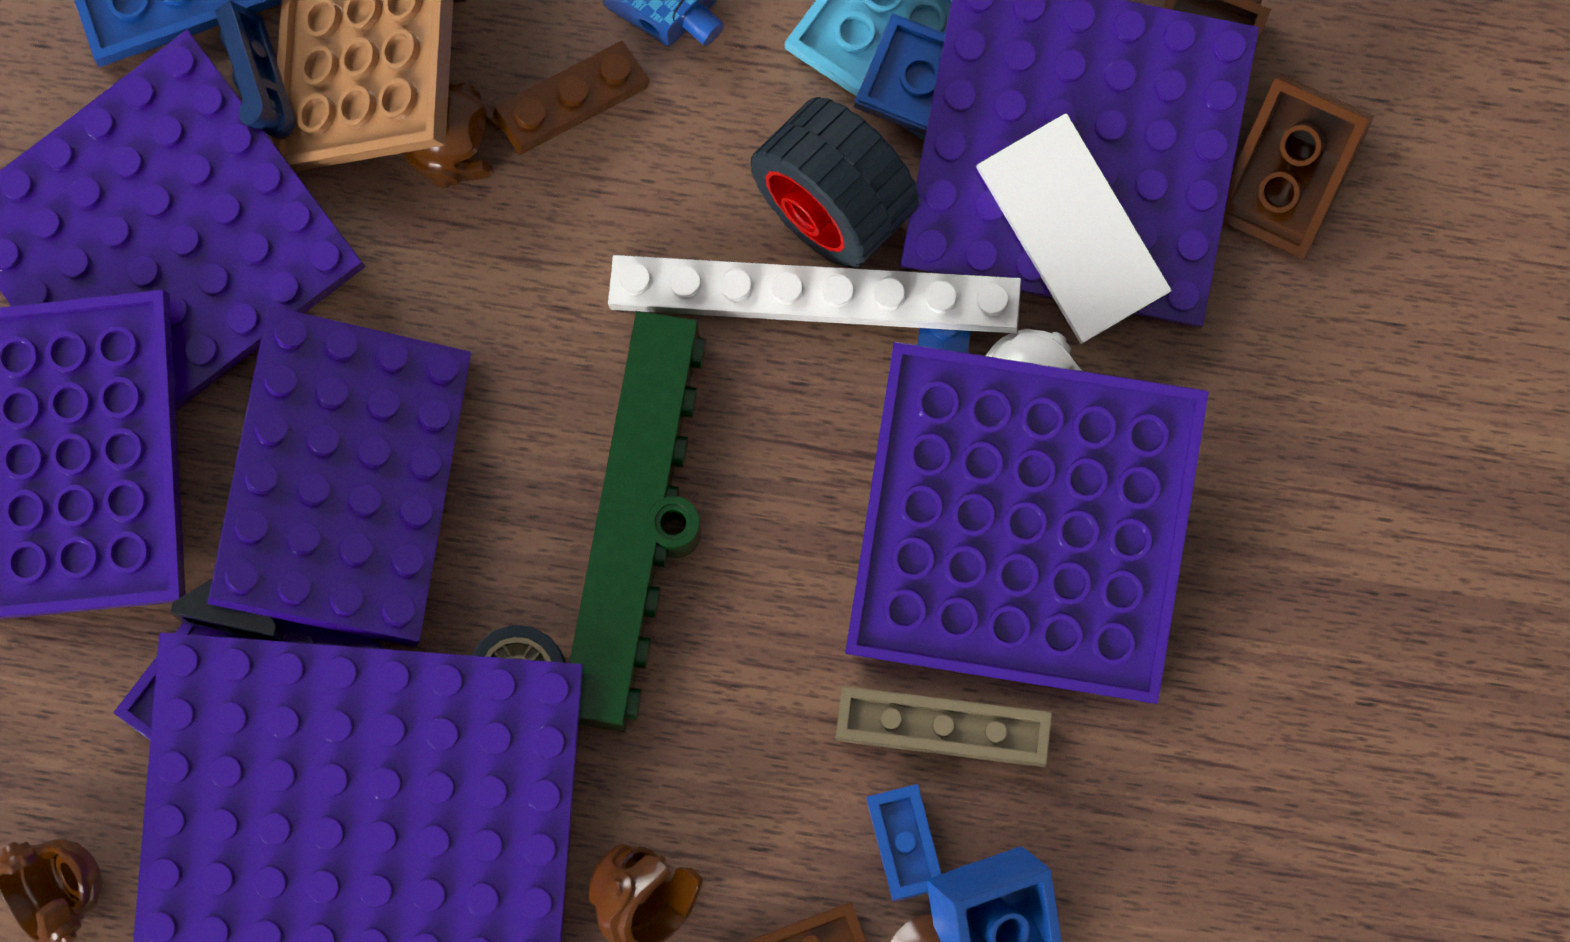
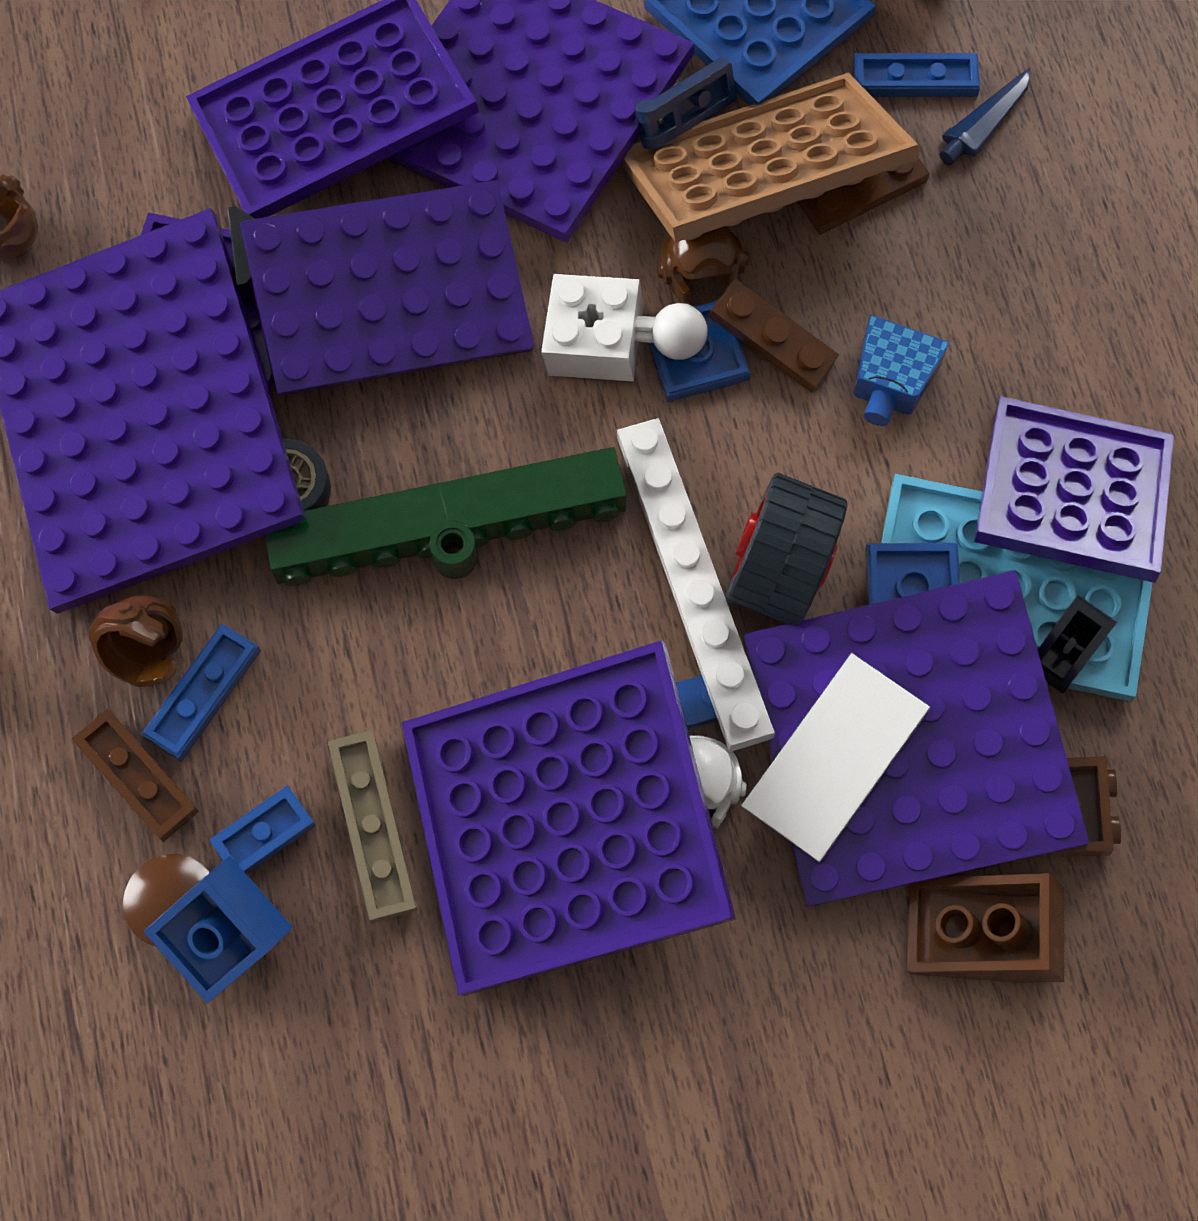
camera: 65 degrees right, 5 degrees down
(470, 243) = (598, 327): none -> white brick
(548, 188) = (713, 367): none -> blue tile
(717, 856) = (201, 692): none -> blue tile

